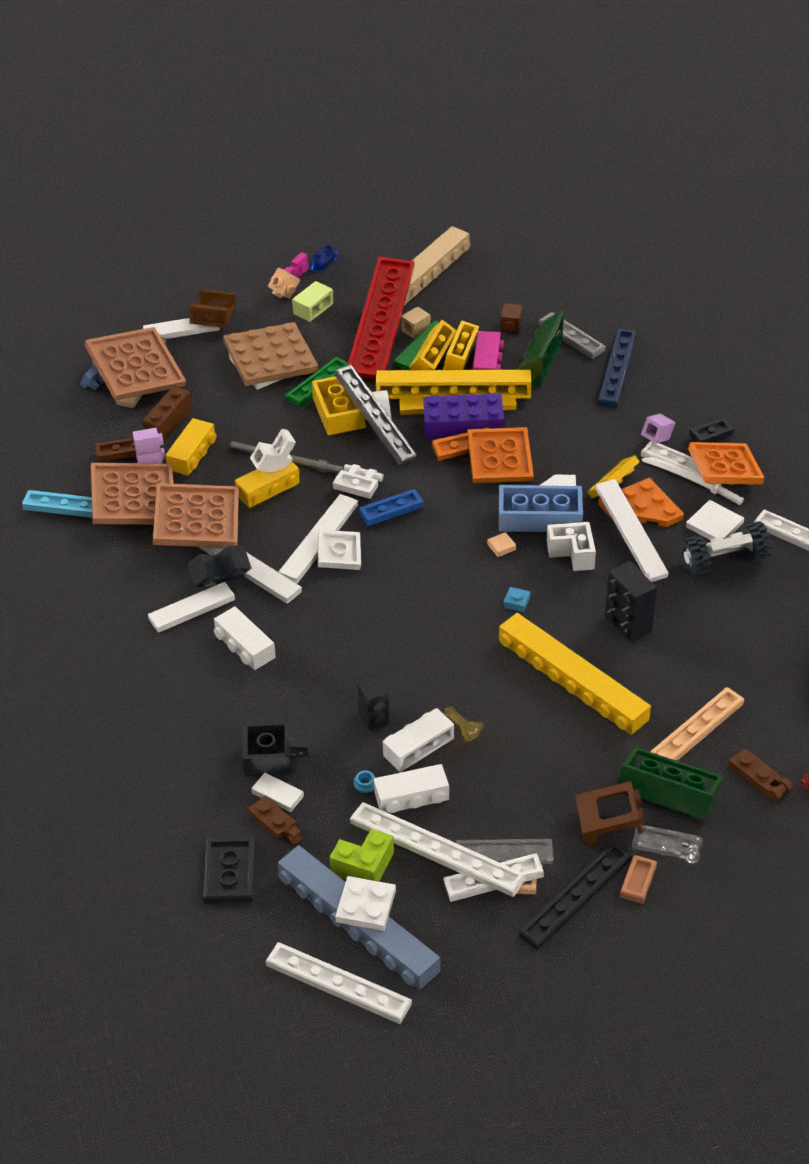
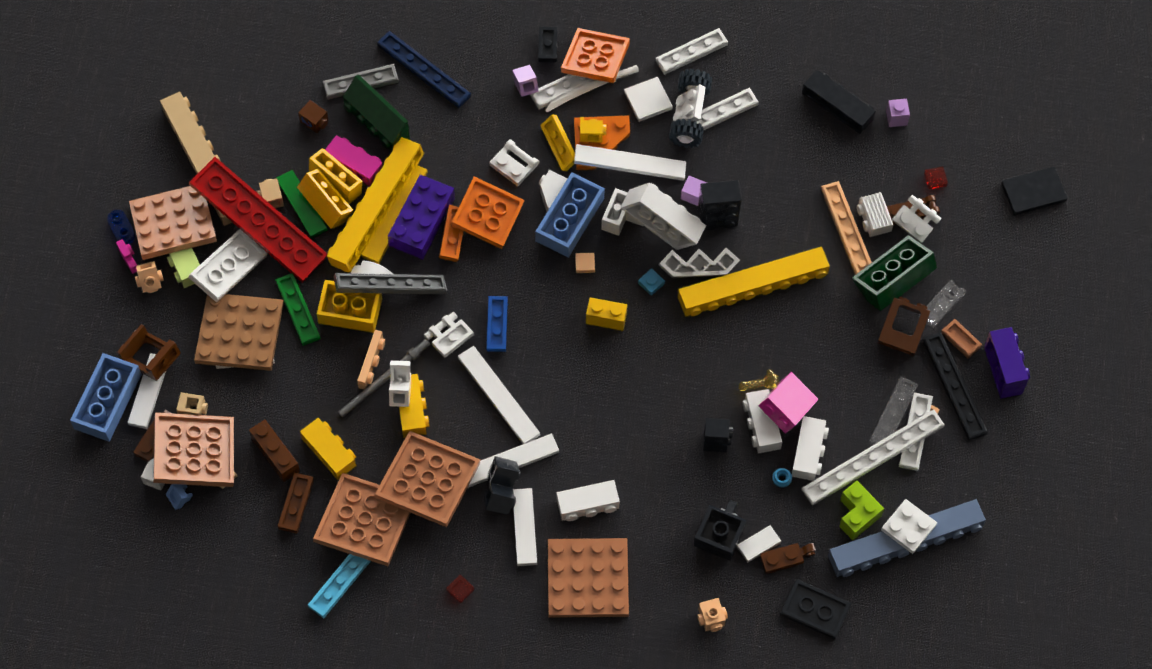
camera: 65 degrees left, 20 degrees up
(101, 587) = (460, 588): none -> clear red tile
(147, 446) = (319, 483): lavender brick -> none
(154, 301) = (106, 397): none -> medium blue brick
(163, 673) = (588, 577): none -> nougat plate
(170, 778) = (712, 615): none -> light nougat brick
(183, 356) = (188, 401): none -> tan brick
(304, 438) = (371, 360): none -> light nougat plate
(324, 320) = (228, 265): none -> white tile
(339, 275) = (172, 222): none -> nougat plate
(339, 549) = (525, 385): white tile -> none
(339, 983) = (953, 577): white tile -> none
(446, 743) = (788, 402): none -> brick
(454, 575) = (606, 314): none -> yellow brick
(559, 619) = (699, 264): none -> white brick
(563, 455) = (510, 167): none -> white plate
(580, 560) = (663, 216): none -> white brick
(630, 922) = (1006, 362): none -> dark purple brick
(639, 486) = (592, 130): none -> yellow brick
(727, 741) = (874, 214): none -> white brick
(741, 777) = (912, 223): none -> white plate
(749, 581) = (727, 108): none -> white tile

